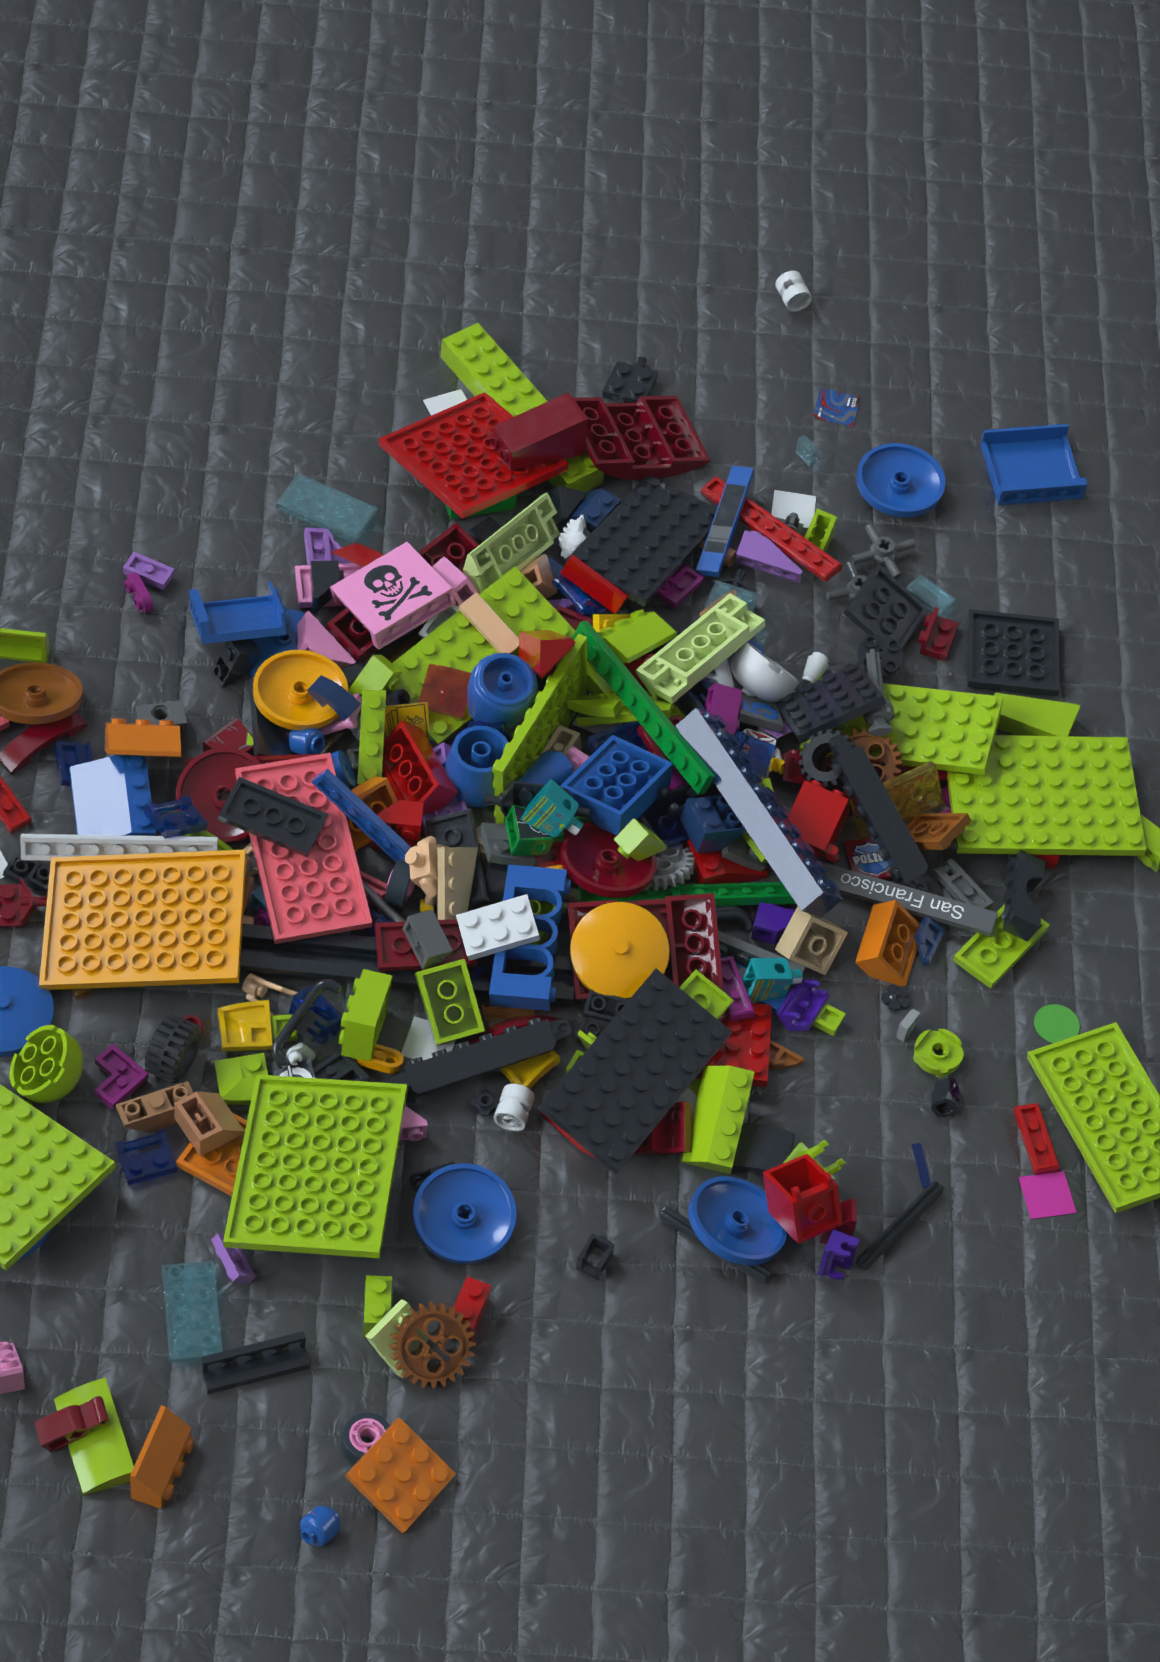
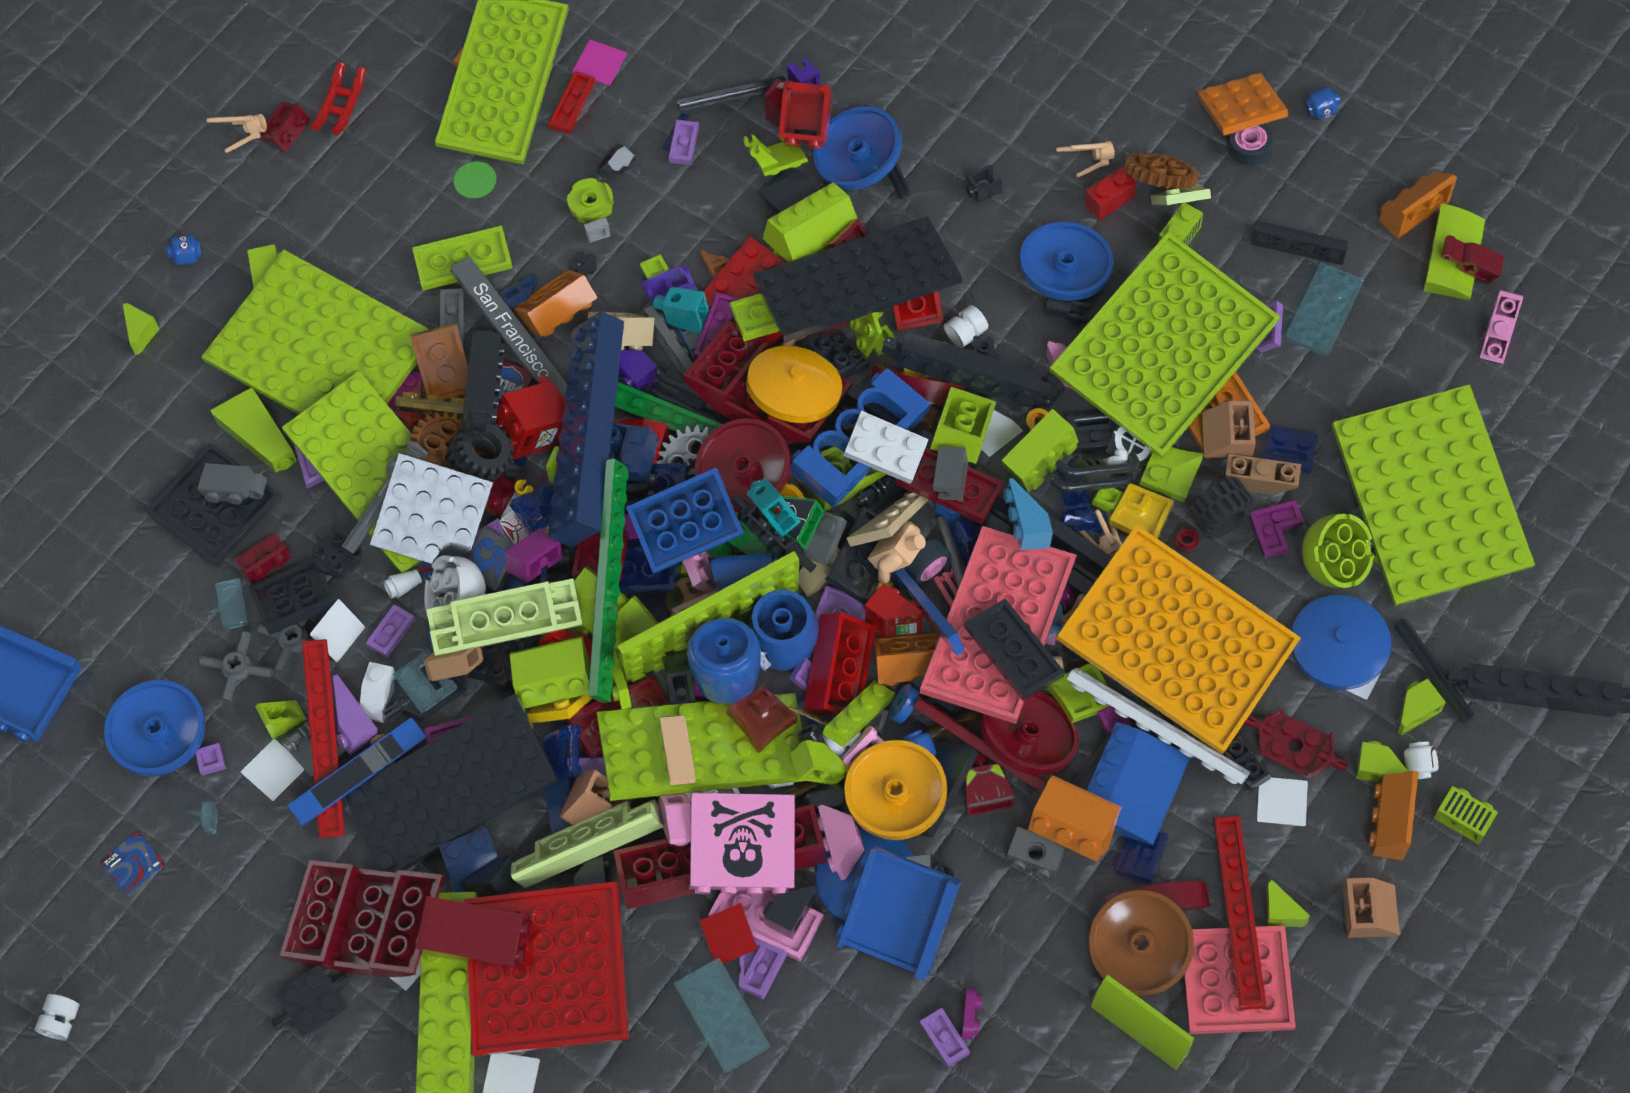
camera: 135 degrees left, 10 degrees up
(176, 823) = (1091, 713): clear blue plate -> none
(291, 987) = (1083, 520): none -> clear blue hinge
(329, 692) = (876, 751): dark blue slope -> none
(333, 940) = (1030, 520): none -> dark azure slope
(506, 1352) = (1101, 151): none -> light nougat plant
(543, 649) = (658, 665): red slope -> none
(573, 536) = (515, 831): white hair -> none
(594, 584) = (547, 743): red tile -> none
(638, 841) = (708, 454): lime slope -> none
(767, 586) = (377, 690): none -> white slope
(791, 633) = (390, 631): none -> medium lavender plate
(829, 605) = (339, 628): none -> white sticker
(842, 487) = (210, 759): none -> medium lavender plate
(902, 1150) = (684, 142): none -> medium lavender plate
(1008, 657) = (230, 483): none -> dark grey hinge
(1020, 914) = (434, 255): black arch -> none

